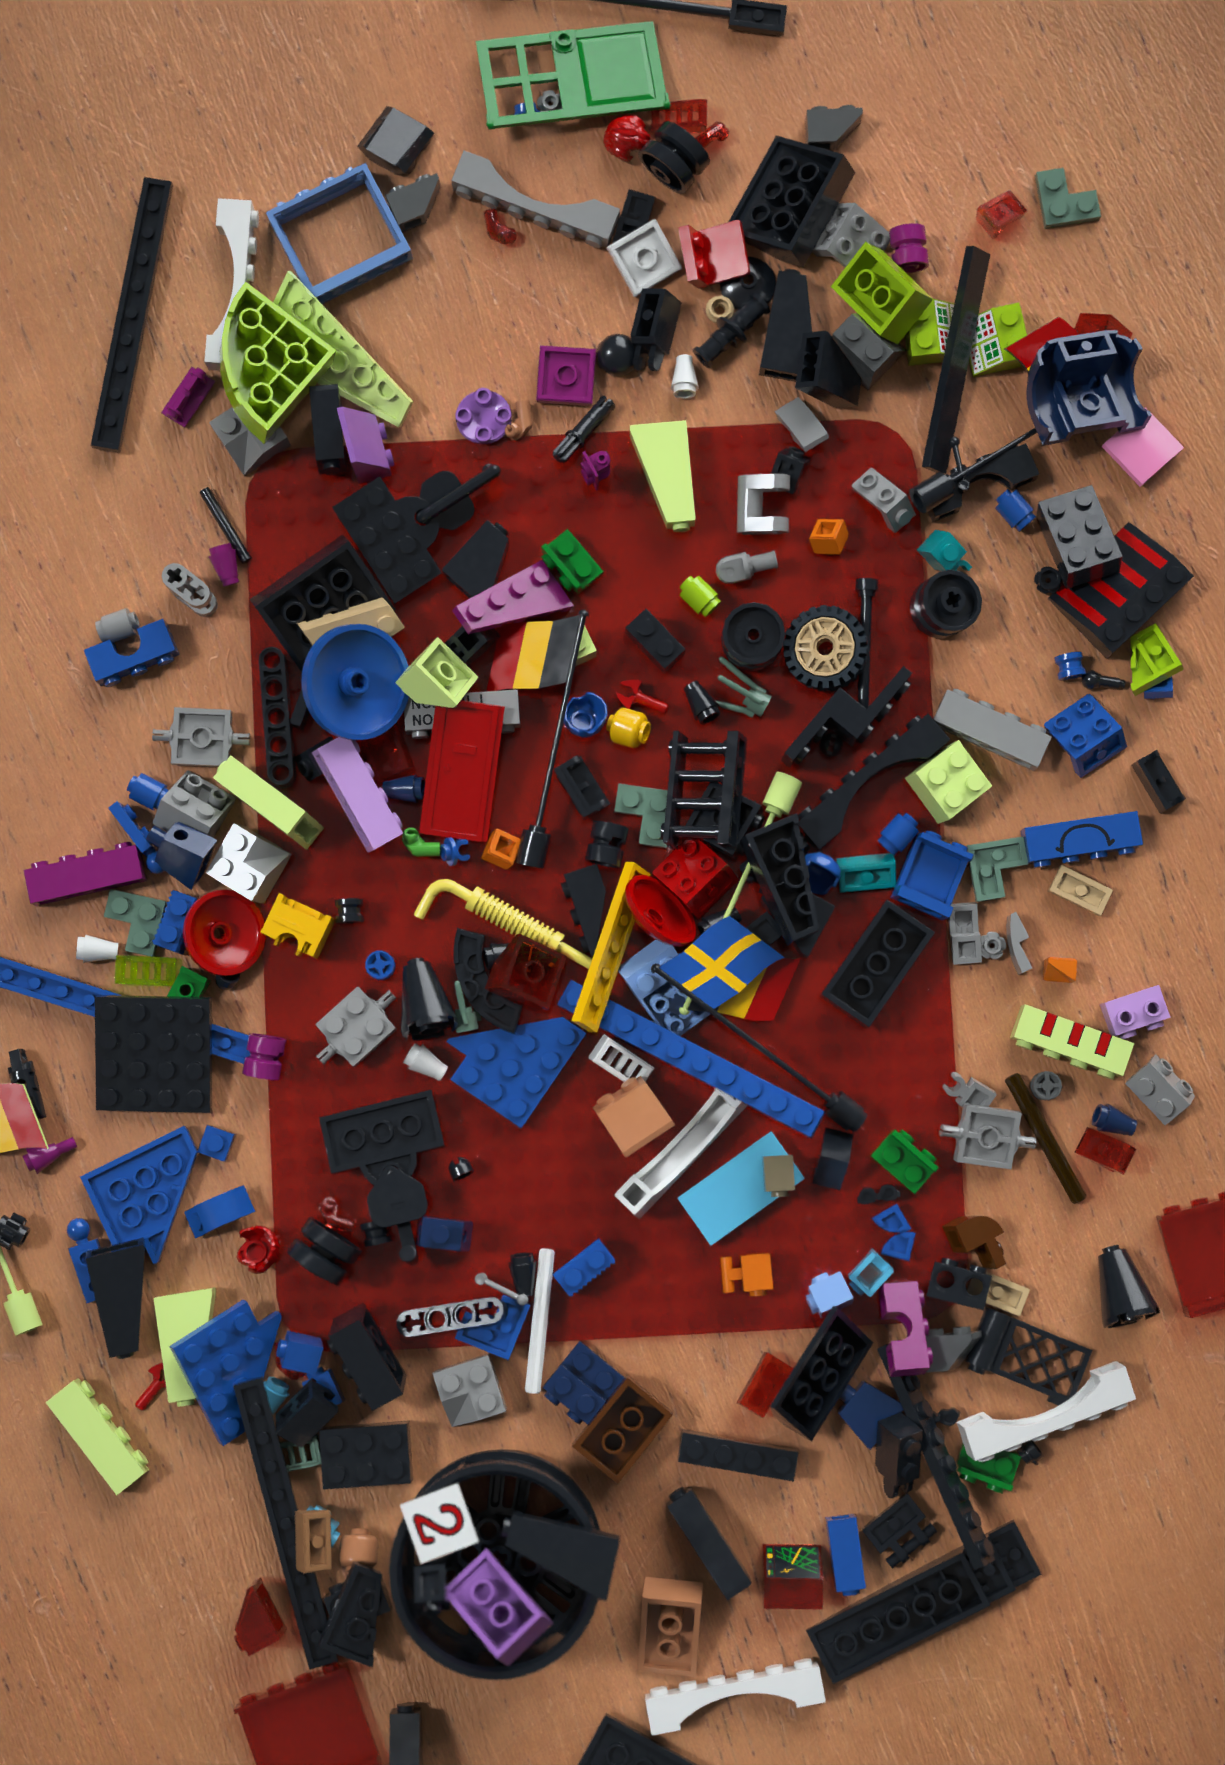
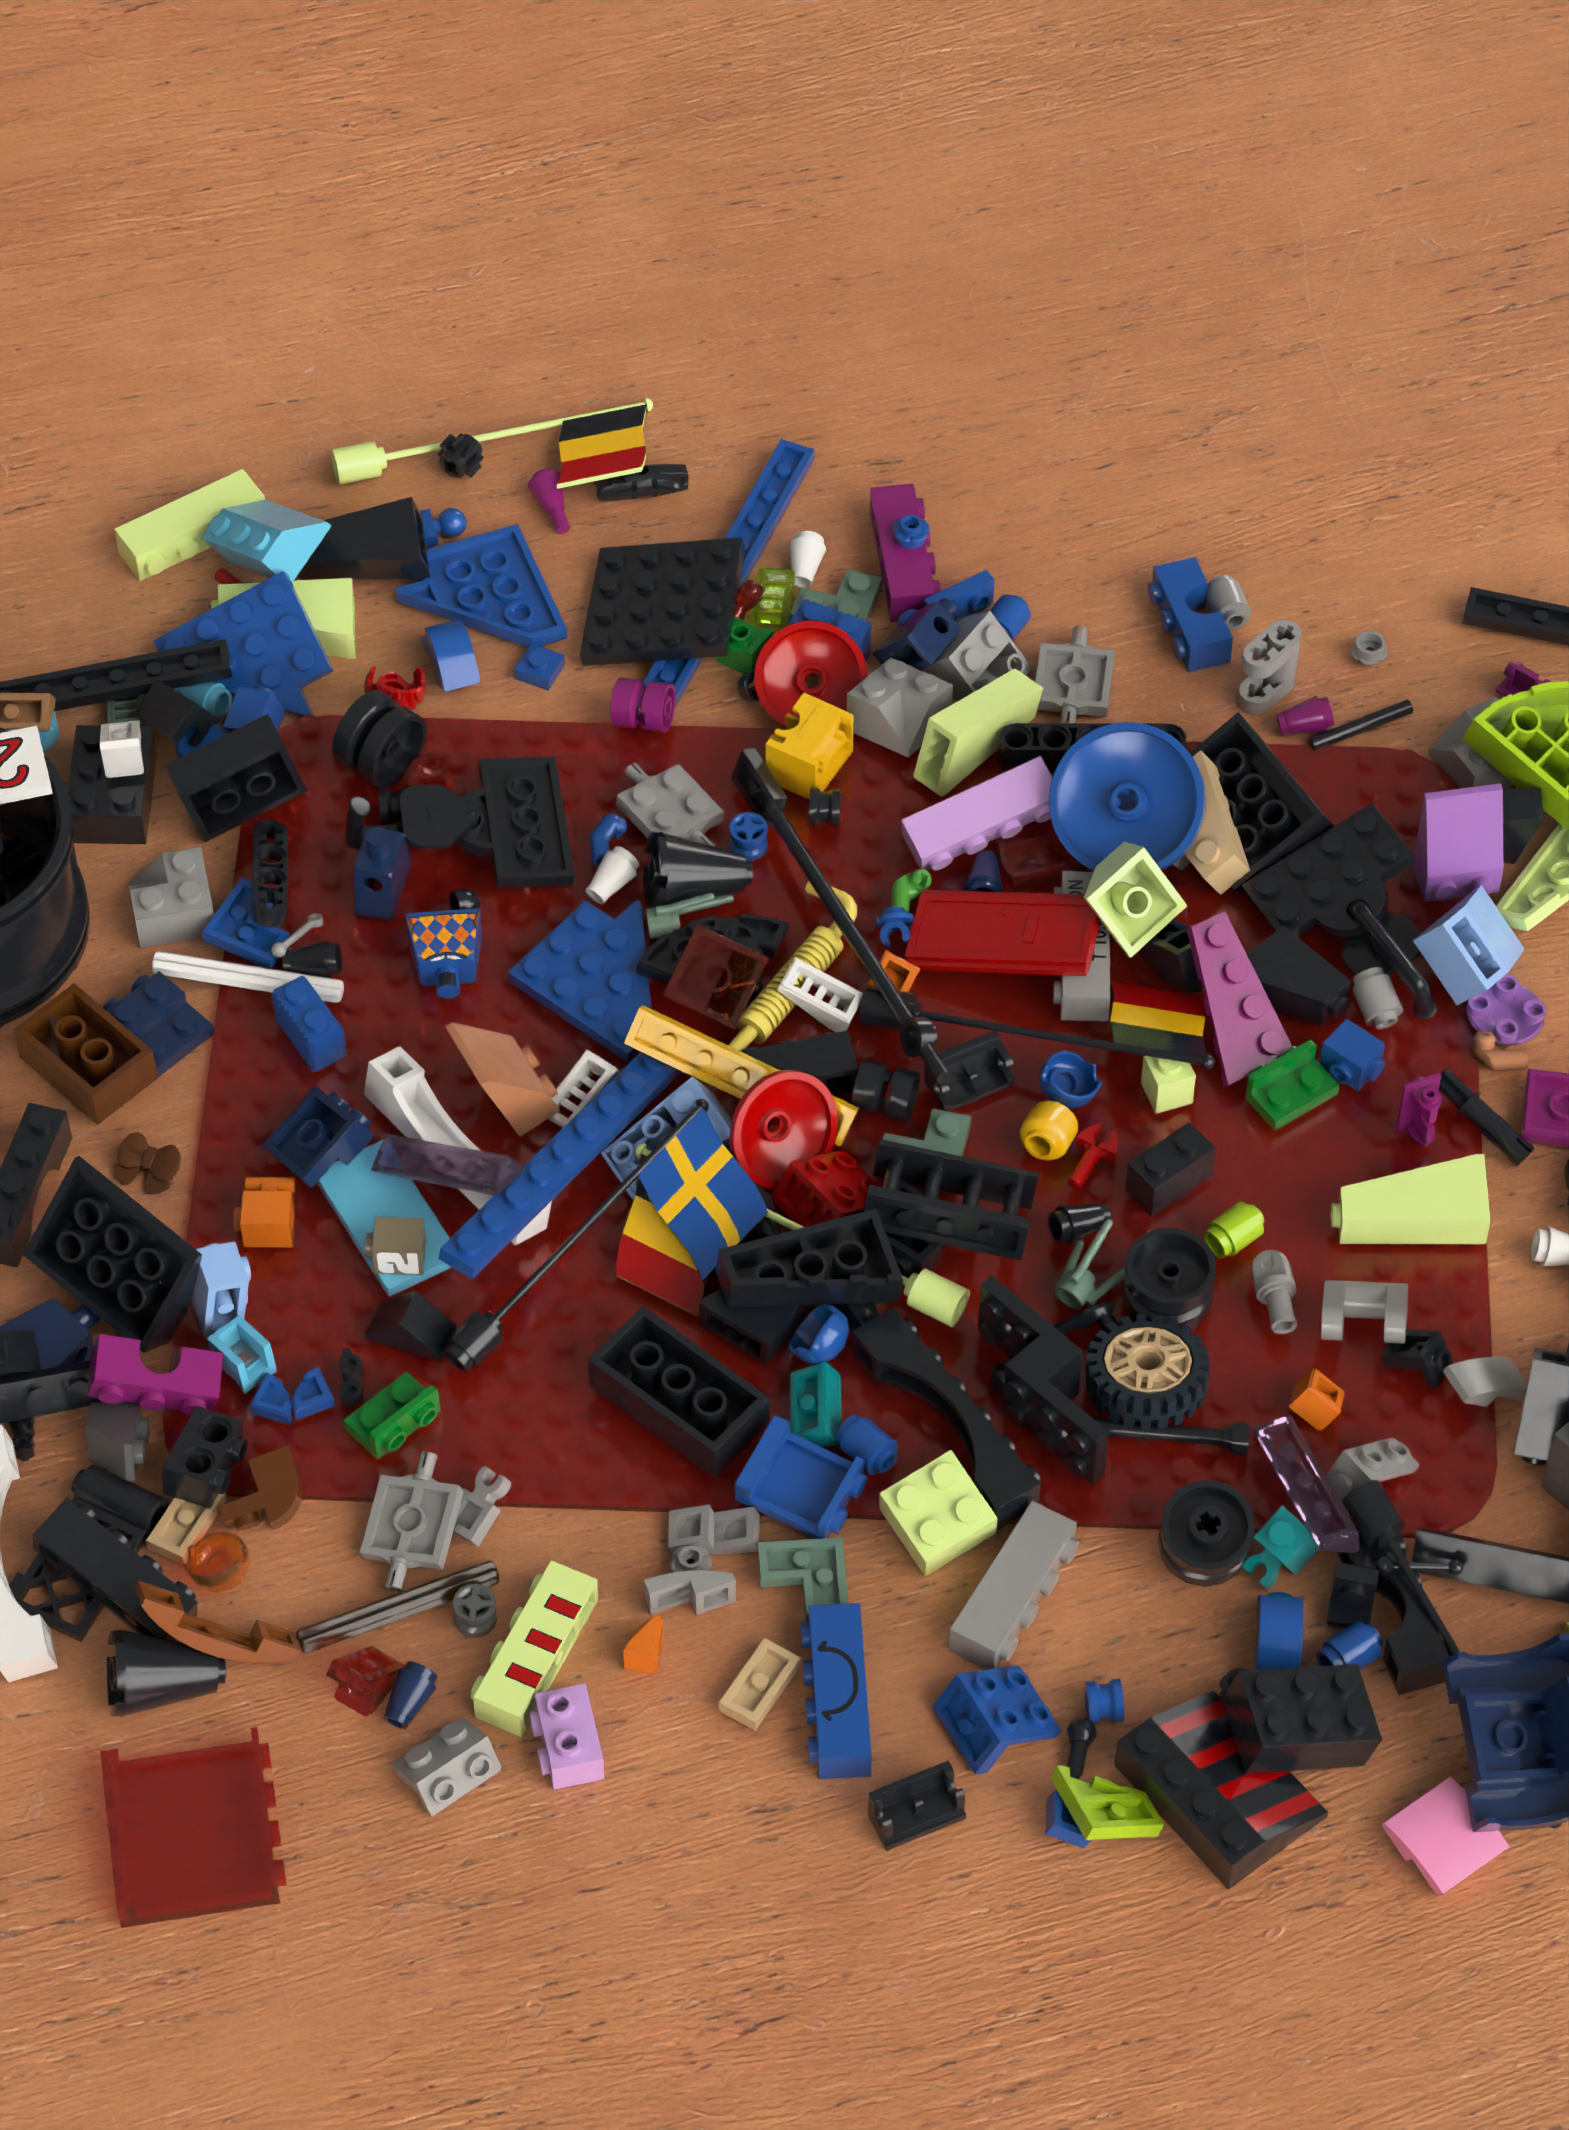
camera: 95 degrees right, 30 degrees down
(85, 869) = (911, 531): none -> blue plate
(123, 1369) = (265, 537): none -> medium azure slope
(144, 987) = (749, 595): none -> clear red arm
(146, 516) = (1369, 648): none -> light grey plate
(352, 1448) = (121, 749): none -> white slope
(354, 951) = (768, 799): none -> black bar
(385, 1074) = (599, 838): none -> blue arm
(444, 436) = (1470, 946): none -> light blue slope
(493, 503) = (1377, 998): none -> light grey brick
(507, 1176) = (445, 948): none -> blue torso
(536, 877) = (825, 1013): none -> white slope
(544, 519) = (1353, 1055): none -> blue brick
(687, 1244) = (318, 1135): none -> dark blue plate
(698, 1376) = (137, 1154): none -> reddish brown piece
(718, 1146) = (445, 1165): none -> clear purple slope
(775, 685) = (1096, 1314): none -> black bar
(908, 539) = (1307, 1485): none -> clear purple slope
(978, 509) = (1352, 1595): none -> black bracket
(1009, 553) = (1279, 1631): none -> blue brick
(1031, 1264) = (218, 1562): none -> clear orange hair
(1056, 1331) = (105, 1565): none -> black brick
(1097, 1253) = (263, 1644): none -> dark orange slope

